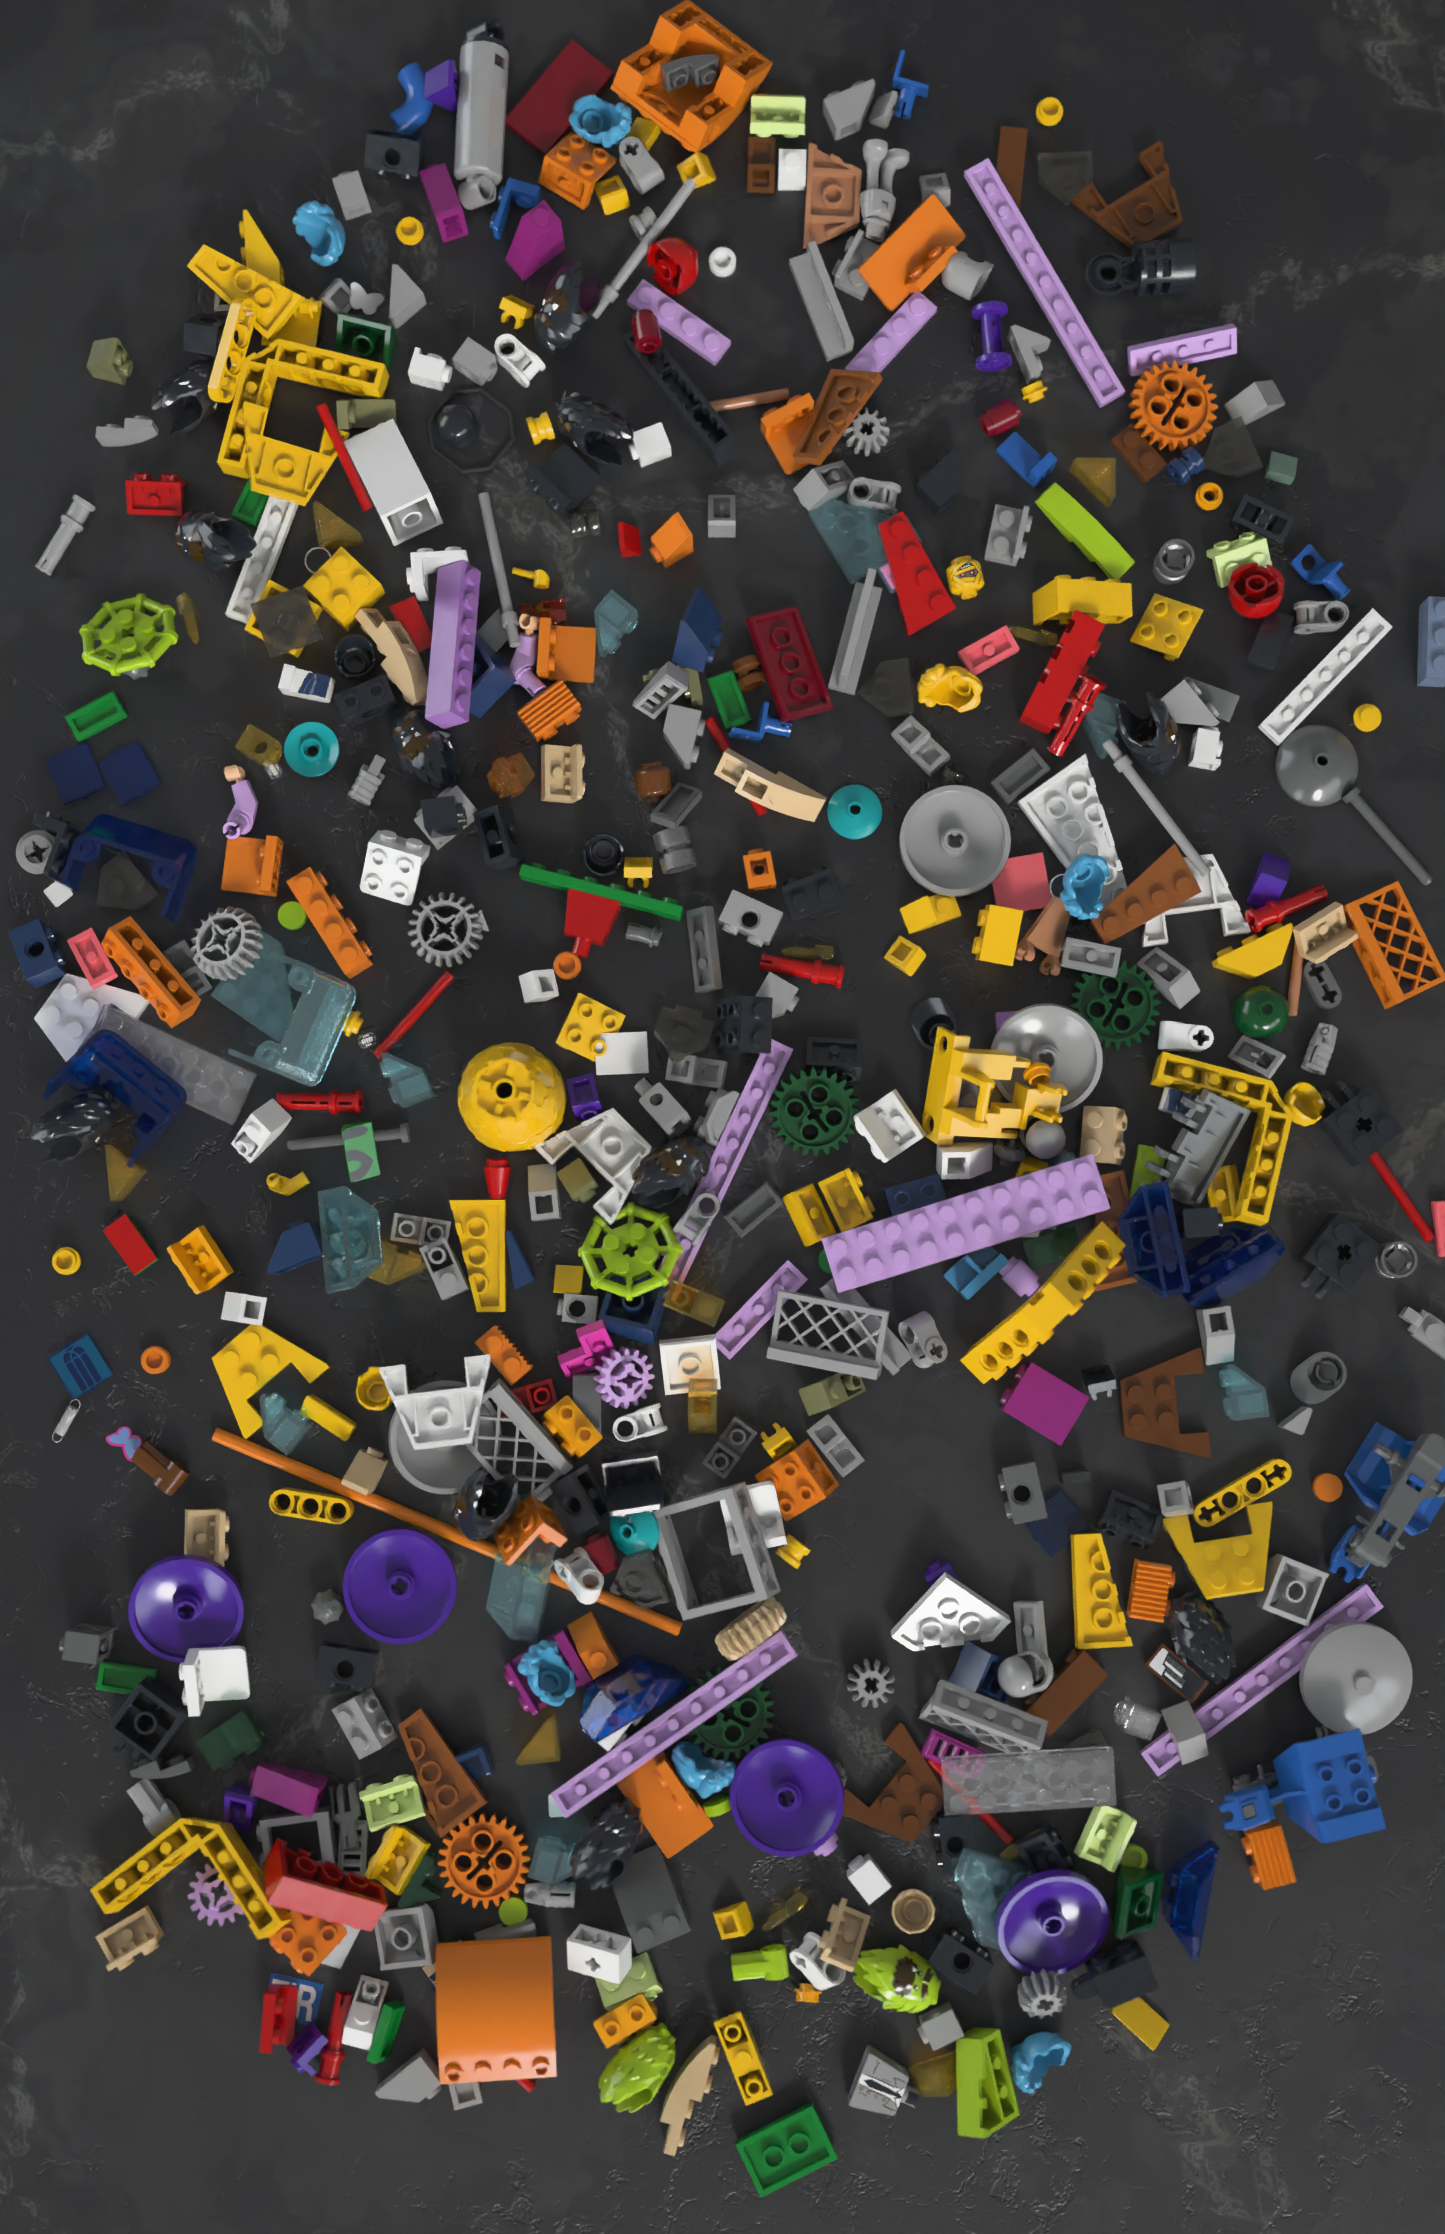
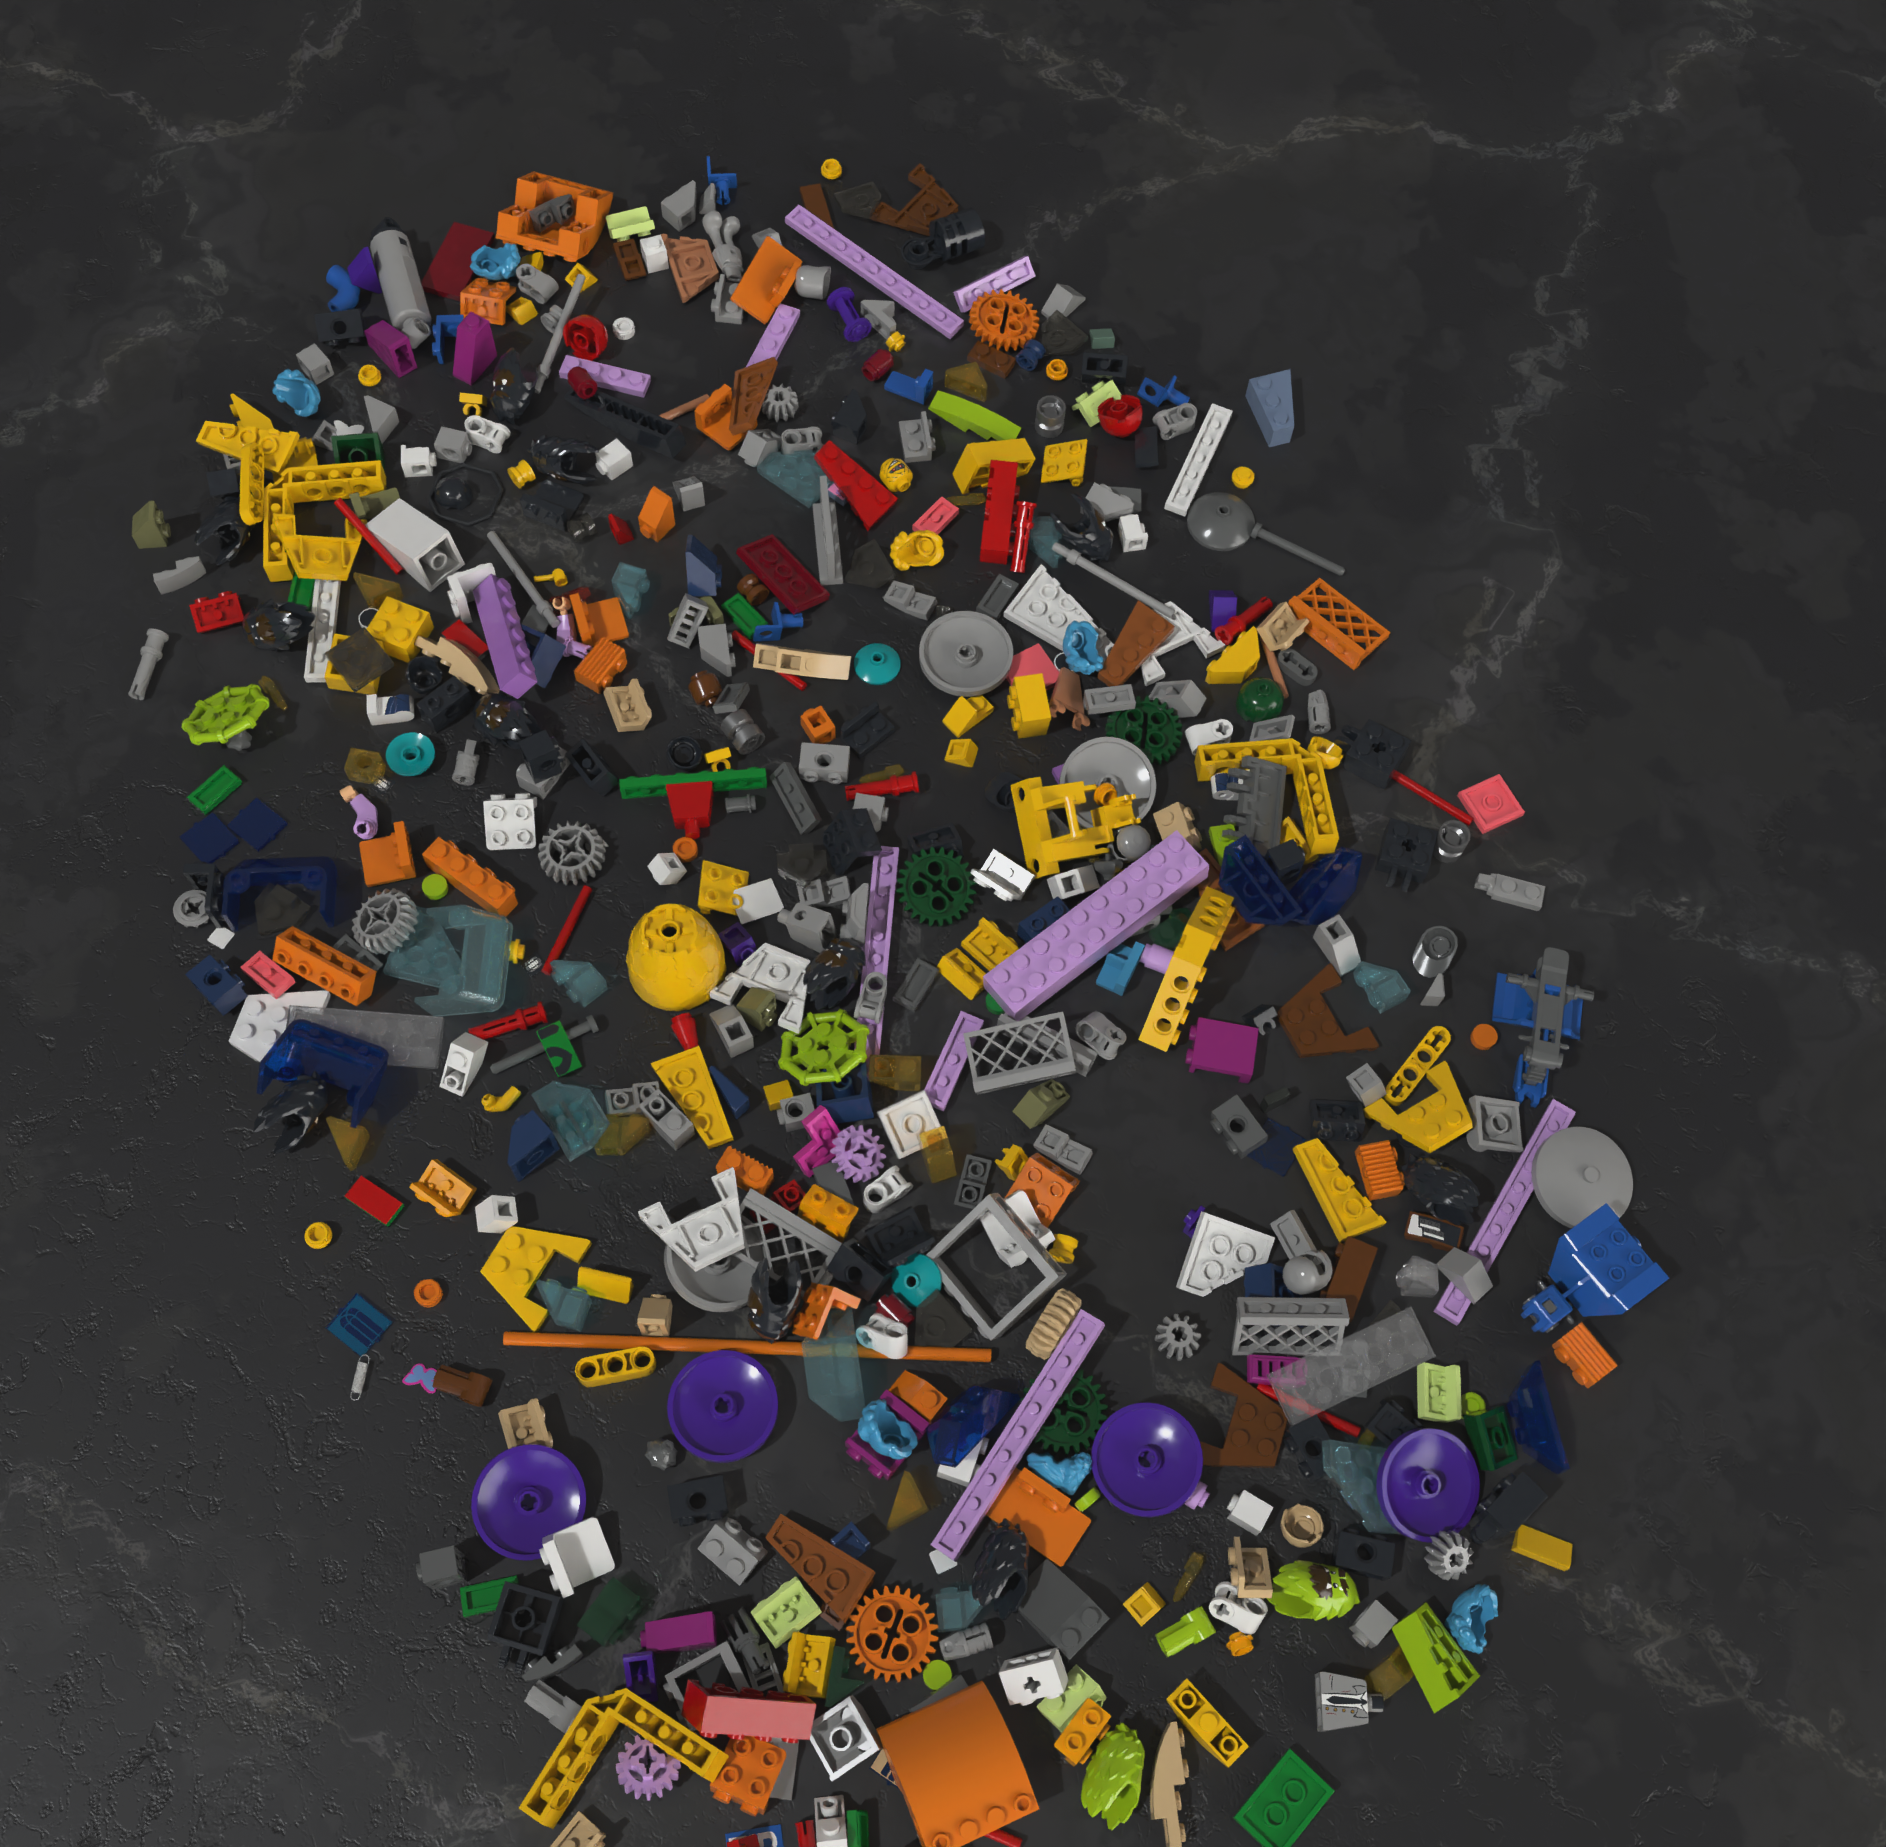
camera: 25 degrees left, 20 degrees down
(372, 1390) = (640, 1242): yellow hair -> none
(510, 775) = (585, 719): clear orange brick -> none
(822, 303) = (712, 331): light grey fence -> none

